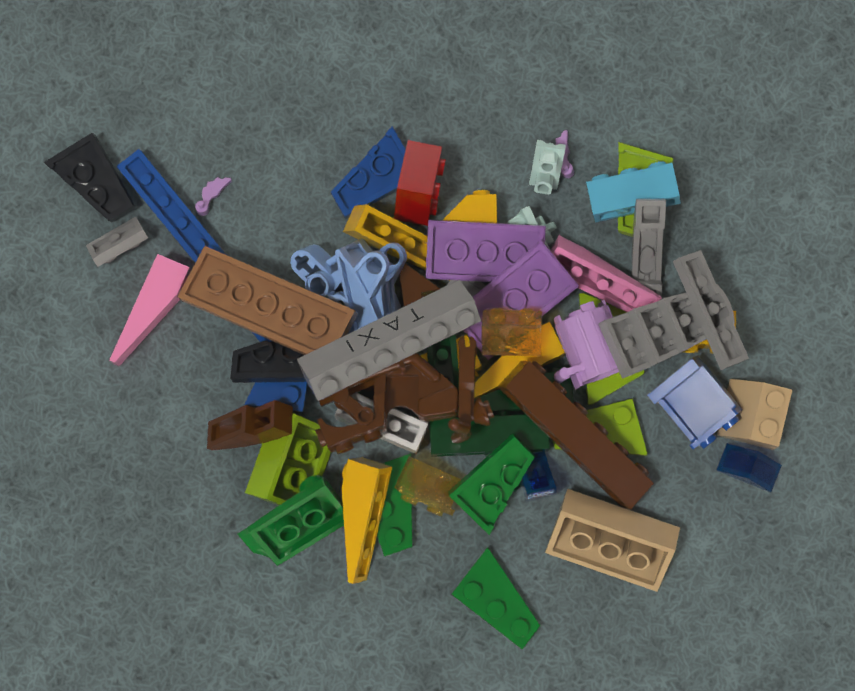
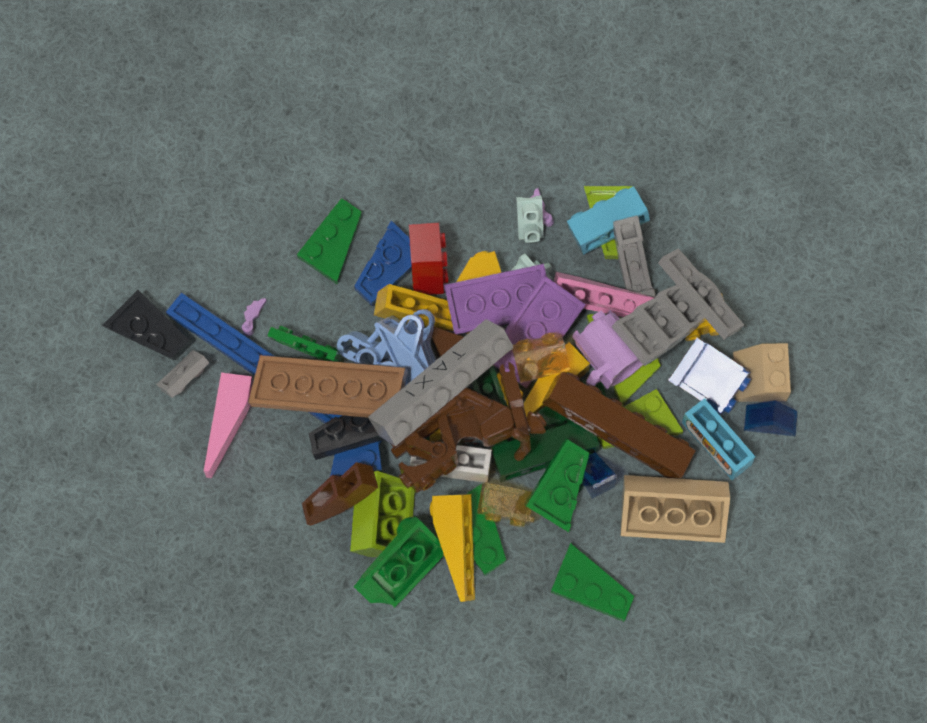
camera: 15 degrees left, 10 degrees down
(239, 231) = (305, 344): none -> green wing
(320, 131) = (330, 243): none -> green wing
(683, 476) = (718, 439): none -> medium azure brick

